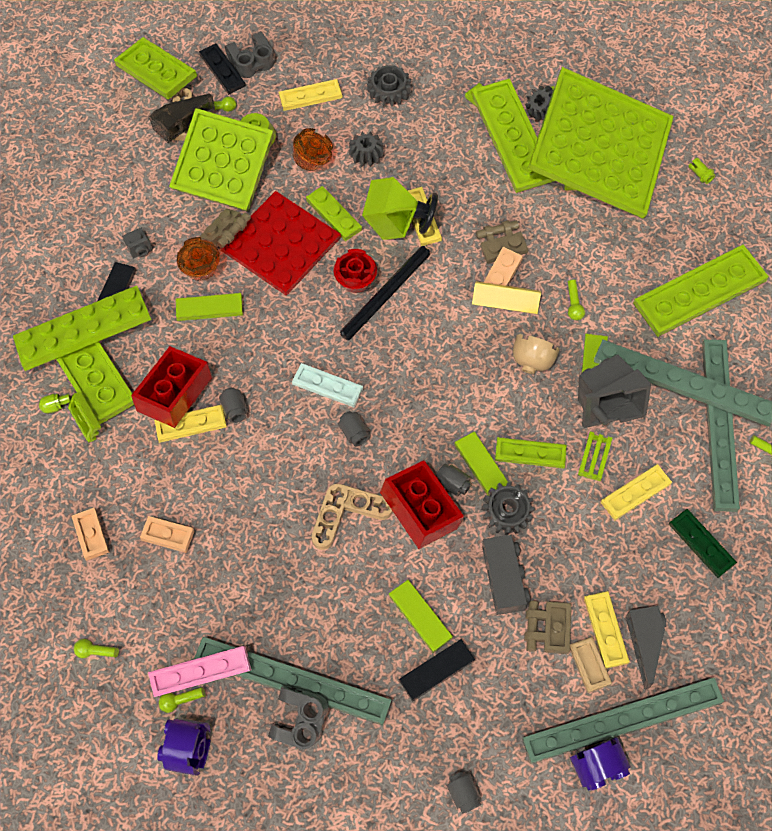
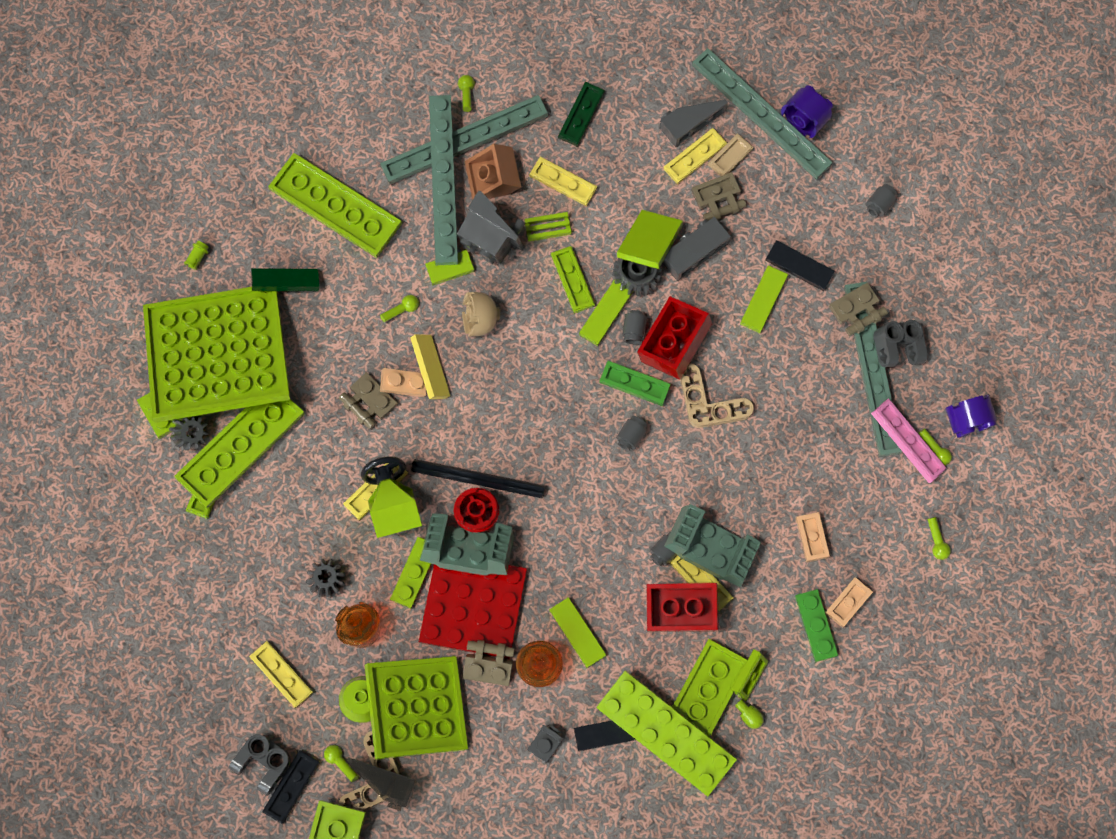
camera: 120 degrees left, 10 degrees up
(90, 496) = (816, 626): none -> bright green plate
(210, 440) = (711, 546): none -> sand green plate
(317, 258) = (465, 550): none -> sand green plate
(327, 385) = (599, 481): light aqua tile -> none
(365, 695) = (855, 303): none -> dark tan plate
(389, 85) = (234, 608): dark grey gear -> none
(399, 454) = (634, 383): none -> bright green plate
(533, 532) = (650, 239): none -> lime tile
(645, 221) = (284, 279): none -> dark green tile
(672, 432) = (493, 172): none -> nougat slope

